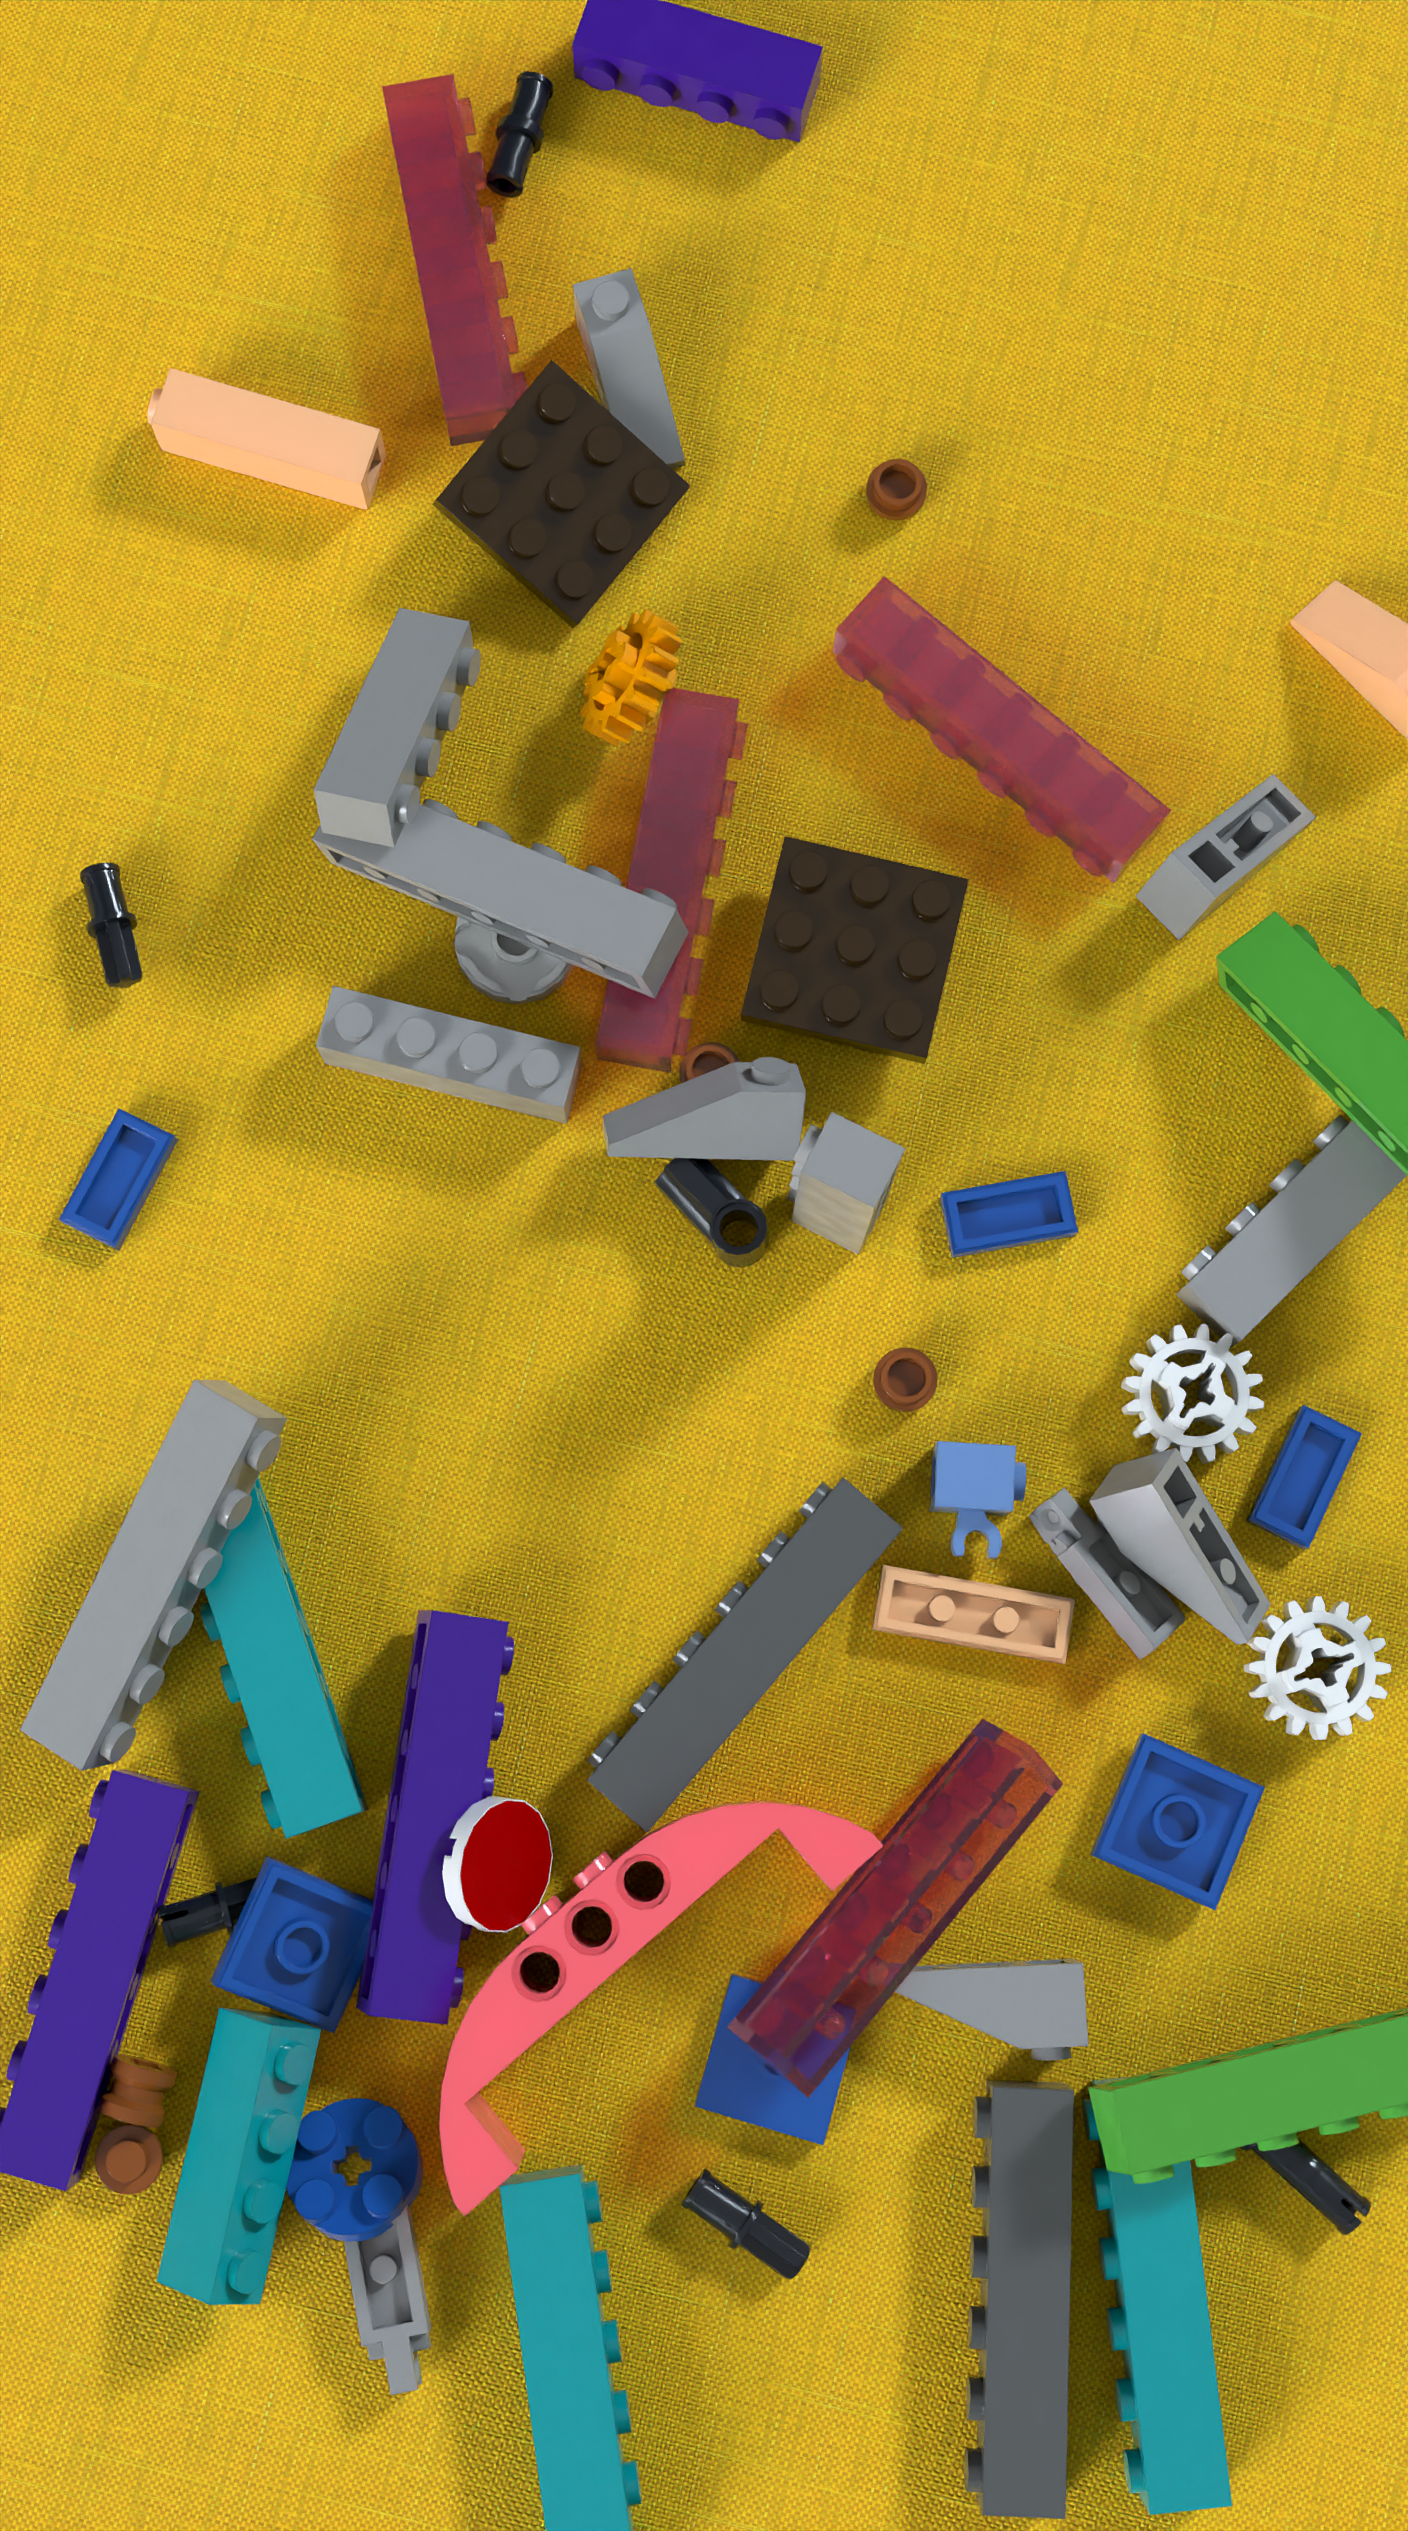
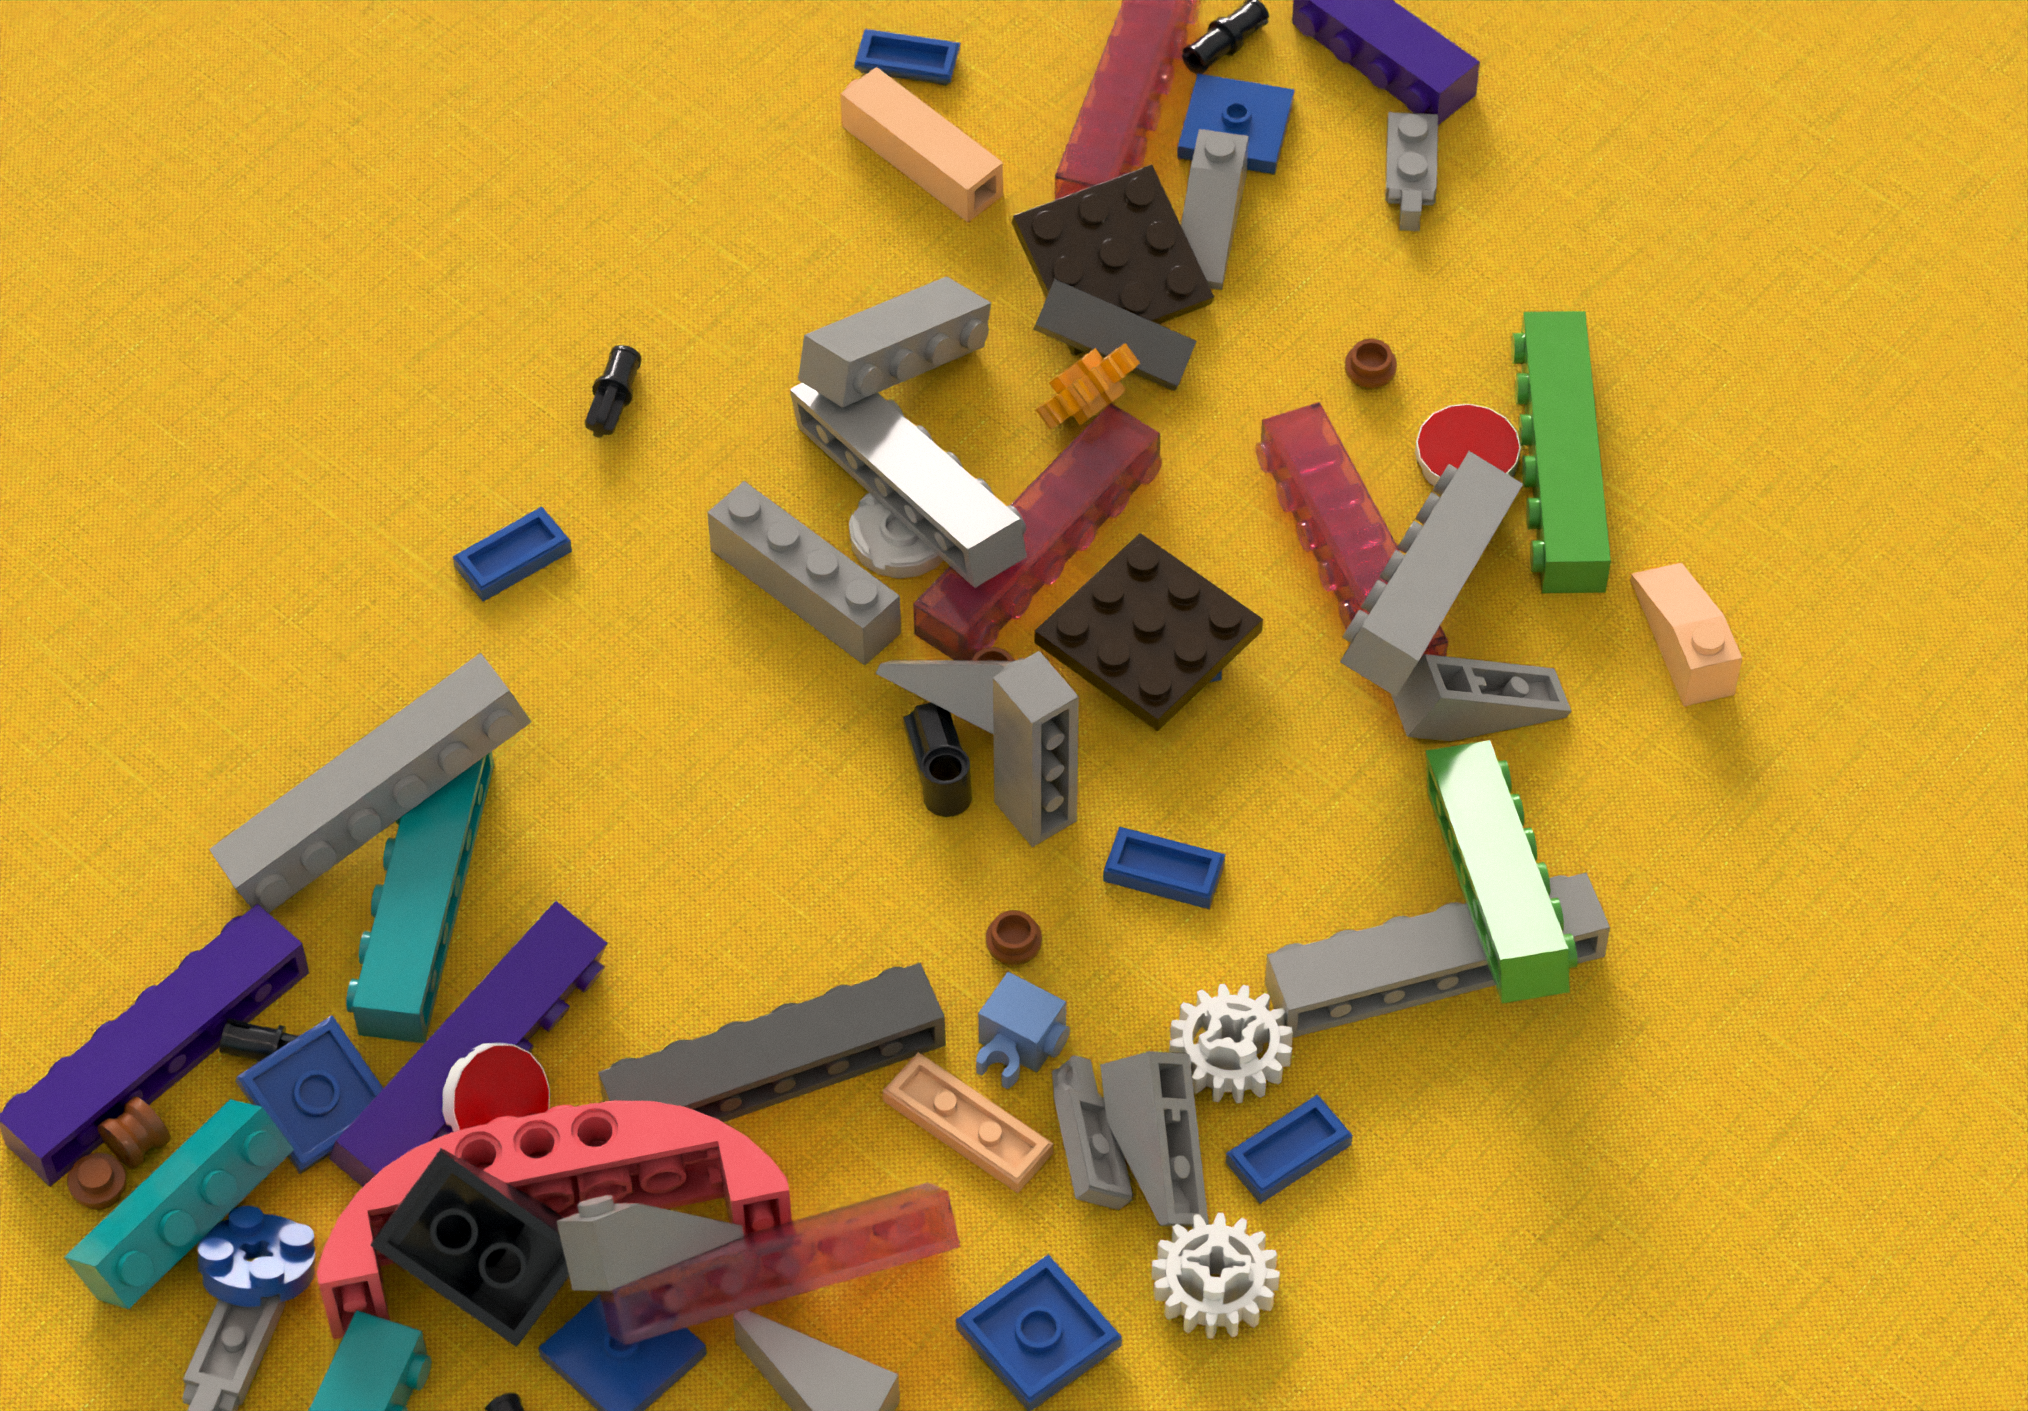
camera: 30 degrees right, 25 degrees down
(185, 325) = (907, 56): none -> blue tile
(587, 235) = (1239, 109): none -> blue plate
(608, 2067) = (478, 1244): none -> black slope
(614, 590) = (1094, 323): none -> dark grey tile
(762, 1983) = (625, 1242): none -> light grey slope
(804, 209) = (1411, 165): none -> light grey hinge
(1050, 547) = (1464, 428): none -> red tile
(1123, 745) = (1430, 574): none -> light grey brick
(1154, 504) = (1563, 453): none -> bright green brick

